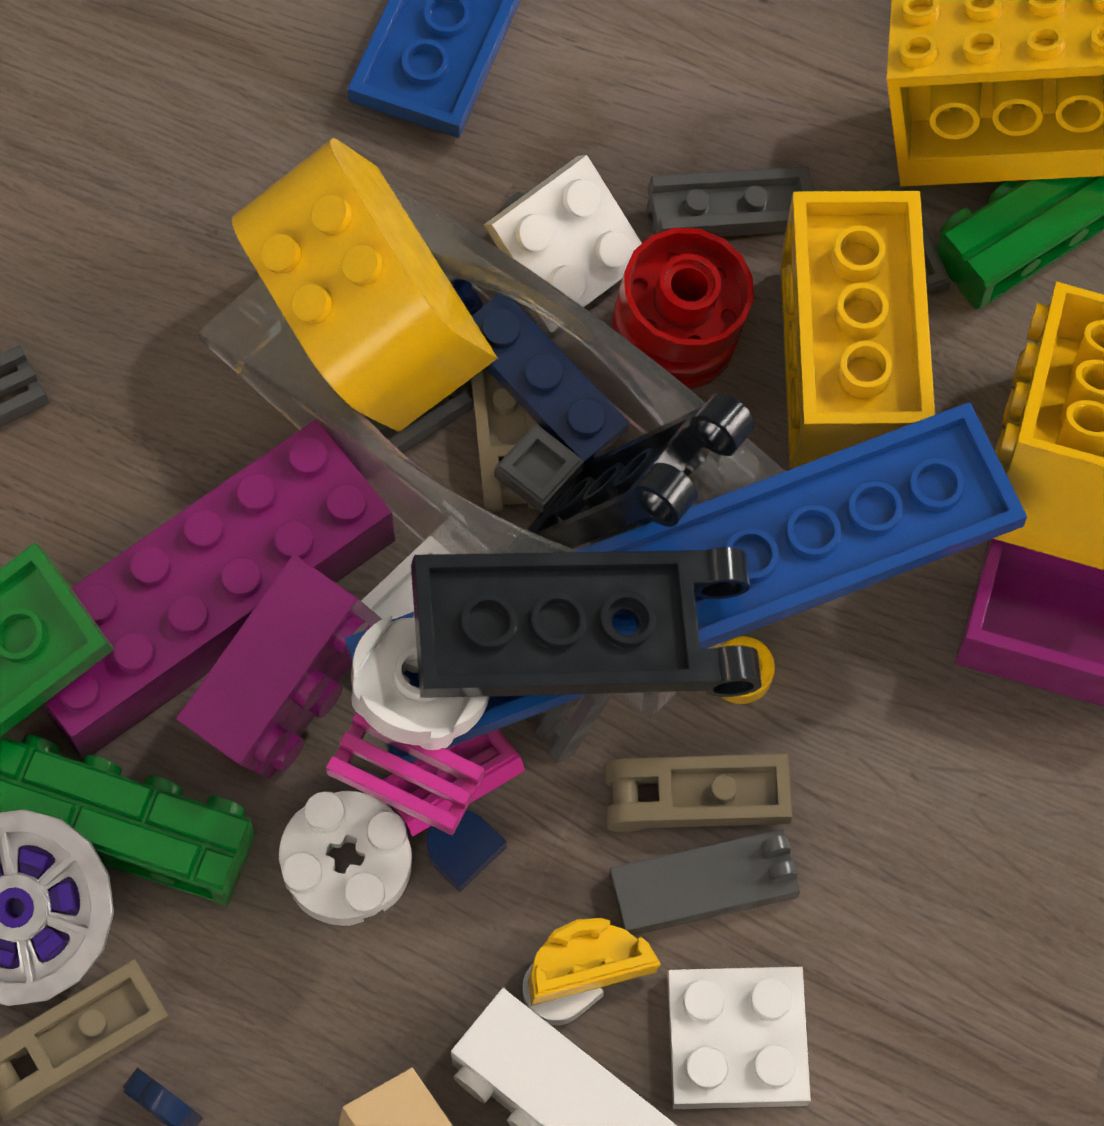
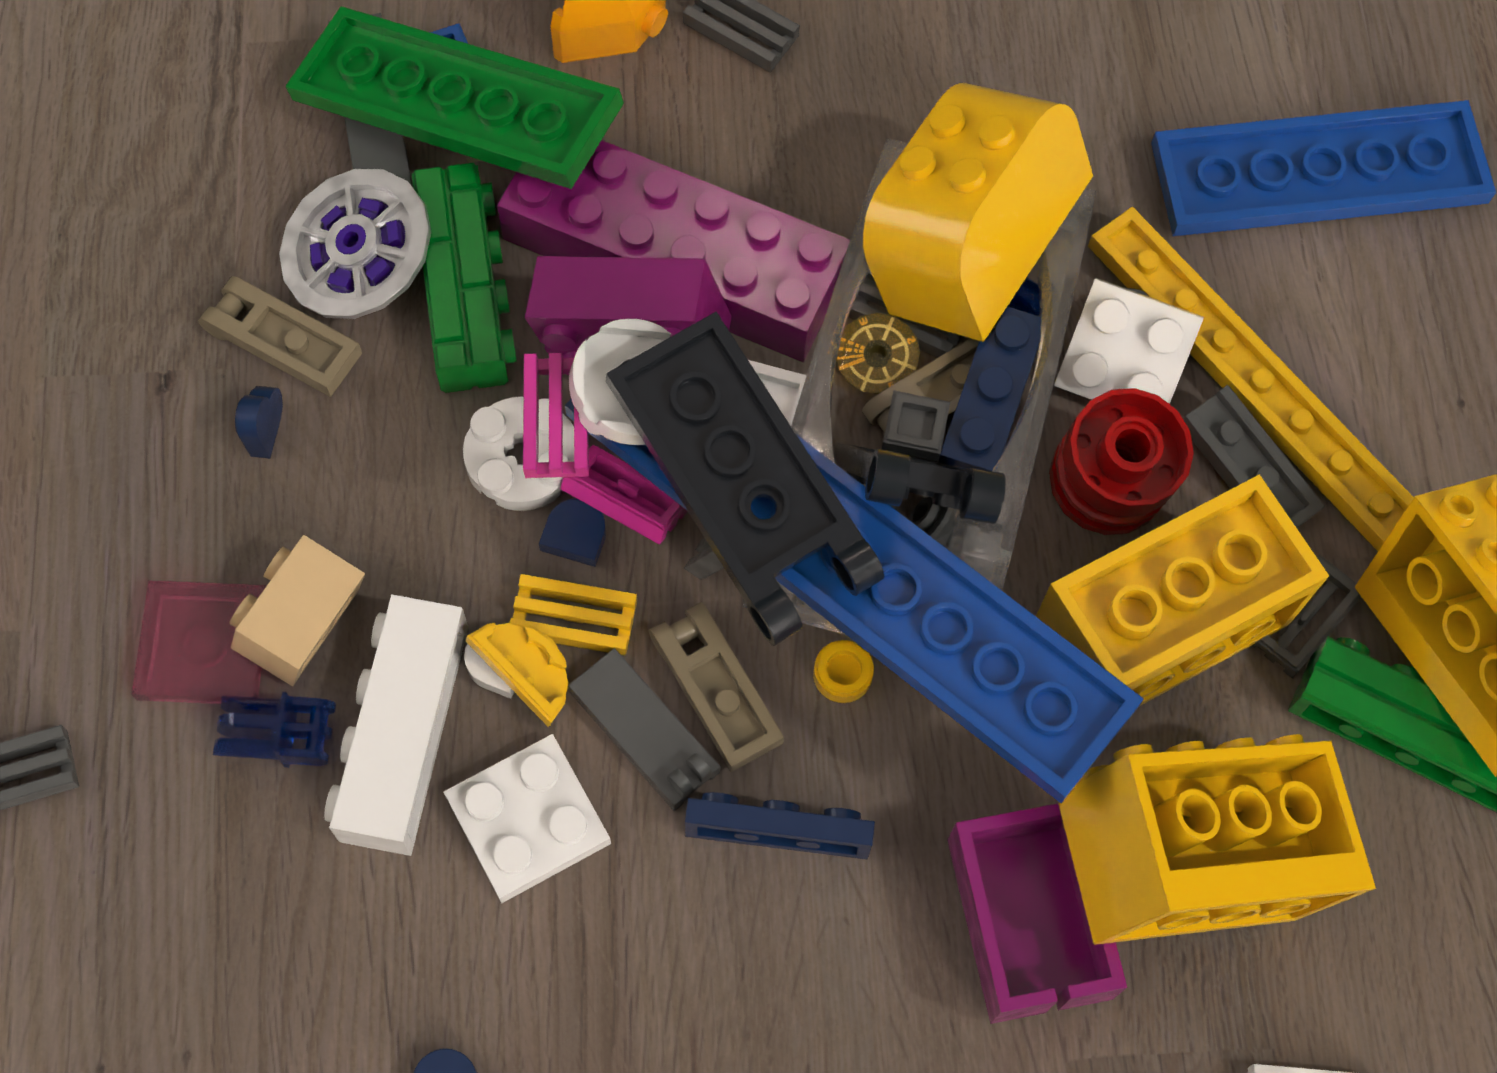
camera: 60 degrees right, 0 degrees up
(442, 453) = (877, 352): none -> clear yellow piece
(583, 849) = (582, 594): none -> yellow tile
(662, 145) = (1259, 378): none -> yellow plate
(869, 803) = (779, 826): none -> dark blue plate

